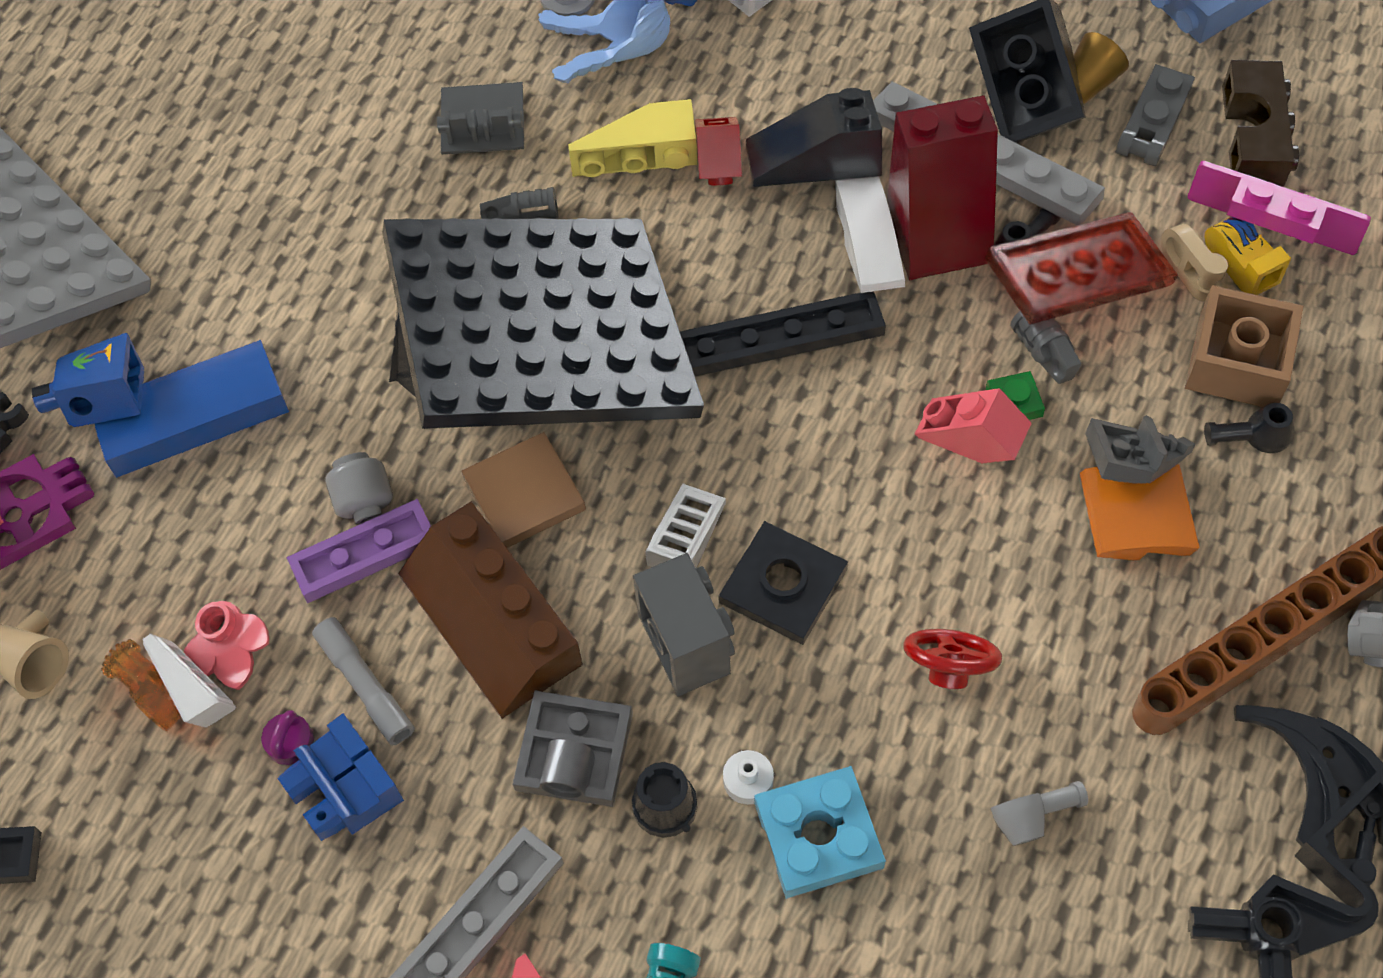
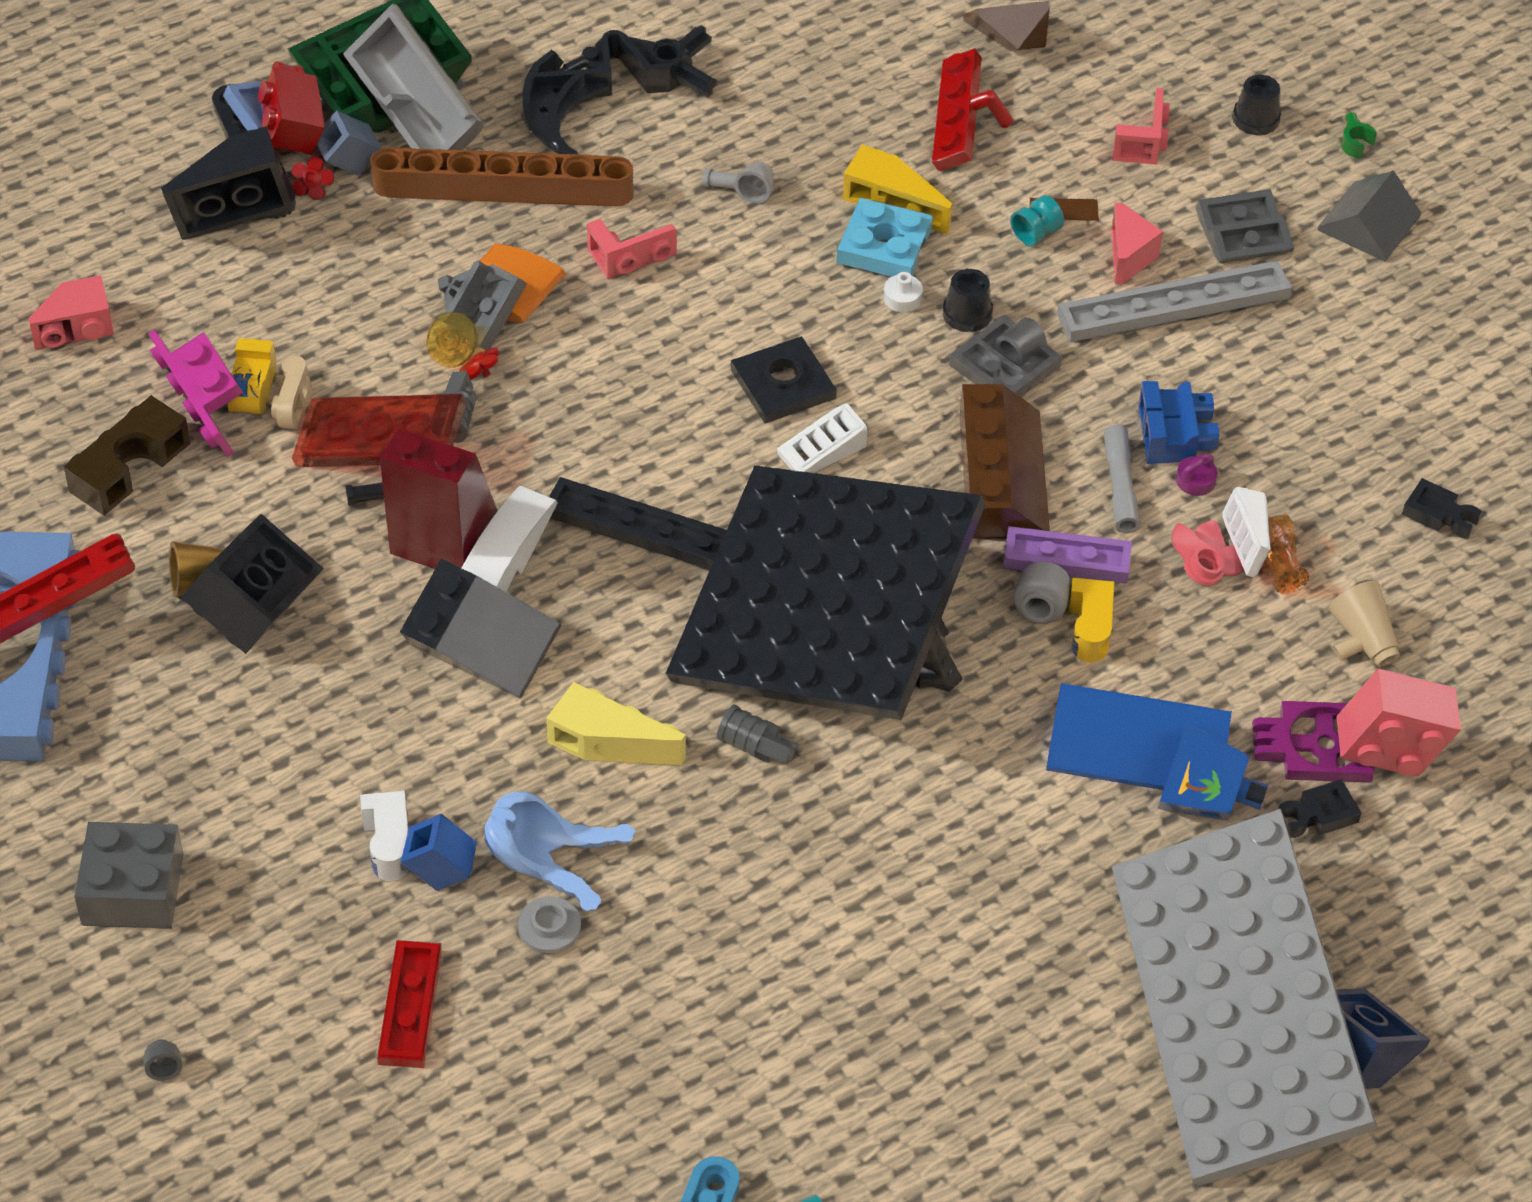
camera: 150 degrees left, 10 degrees down
(291, 487) = (1093, 628): none -> yellow leg
(481, 118) = (722, 848): dark grey hinge -> none
(684, 624) = (880, 362): dark grey brick -> none
(718, 150) = (547, 681): red slope -> none
(869, 910) = (891, 181): none -> yellow slope
(952, 661) = (735, 267): red piece -> none
(975, 425) = (567, 384): coral slope -> none
(1017, 167) = (352, 561): light grey plate -> none
(1022, 392) = (513, 394): green plate -> none
(1073, 404) = (481, 363): none -> red plant
(1082, 605) = (626, 256): none -> coral bracket
(1120, 406) = (452, 339): none -> clear yellow piece
(1155, 114) = (186, 517): dark grey plate -> none
(1244, 347) = (335, 313): medium nougat brick -> none
(1259, 430) = (368, 282): black bar -> none

